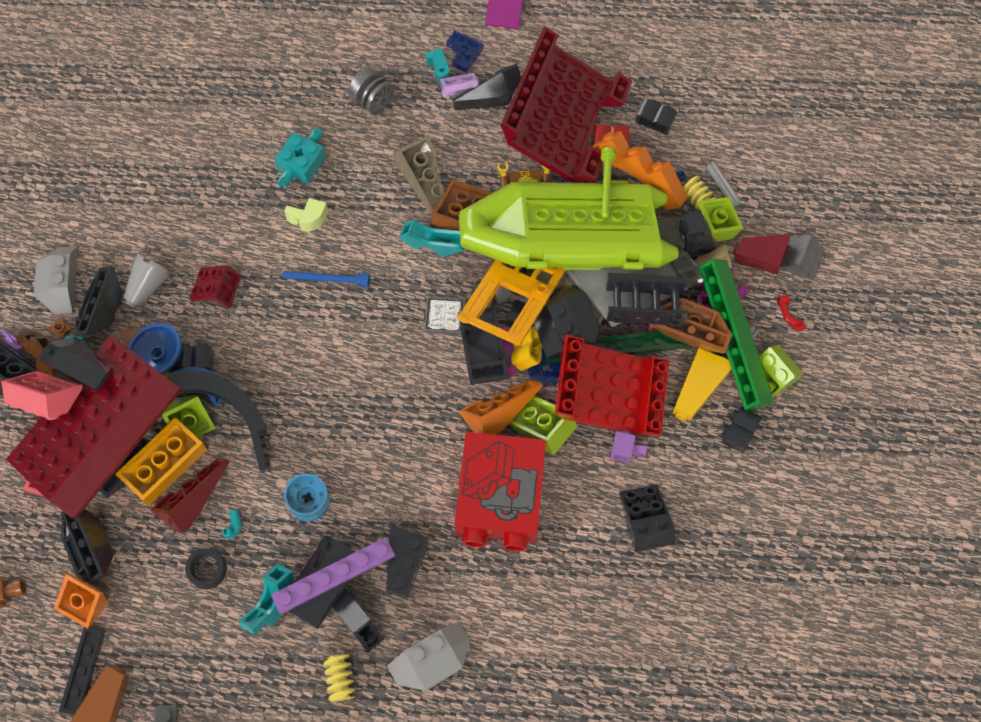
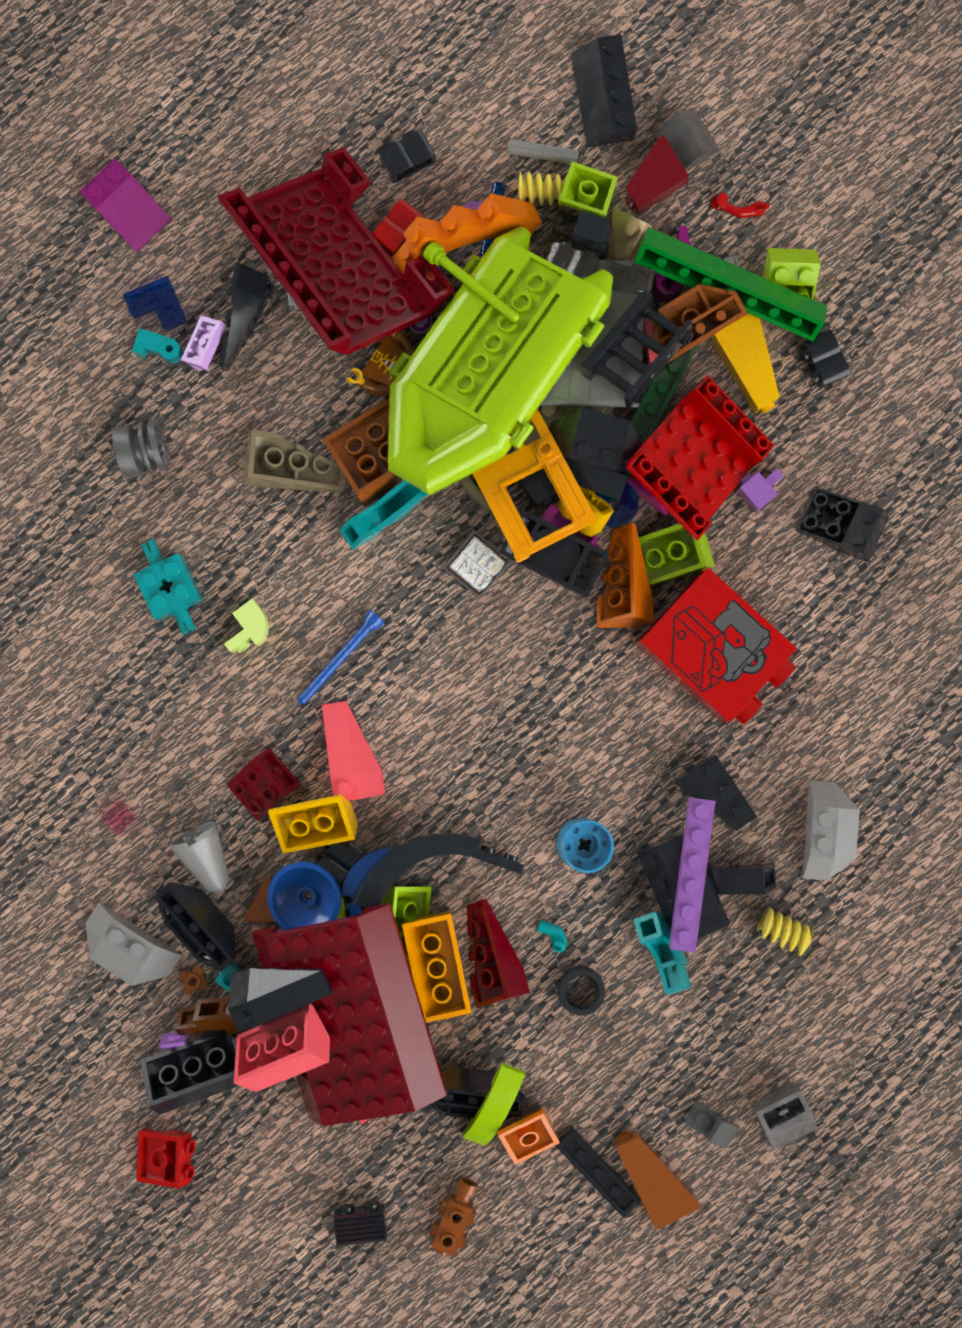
camera: 55 degrees left, 20 degrees up
(87, 558) = (495, 1106): none -> lime slope
(138, 223) = (118, 818): none -> clear pink tile
(208, 324) = (314, 823): none -> yellow slope
(264, 324) = (350, 758): none -> coral wedge
(788, 192) = (604, 92): none -> black slope

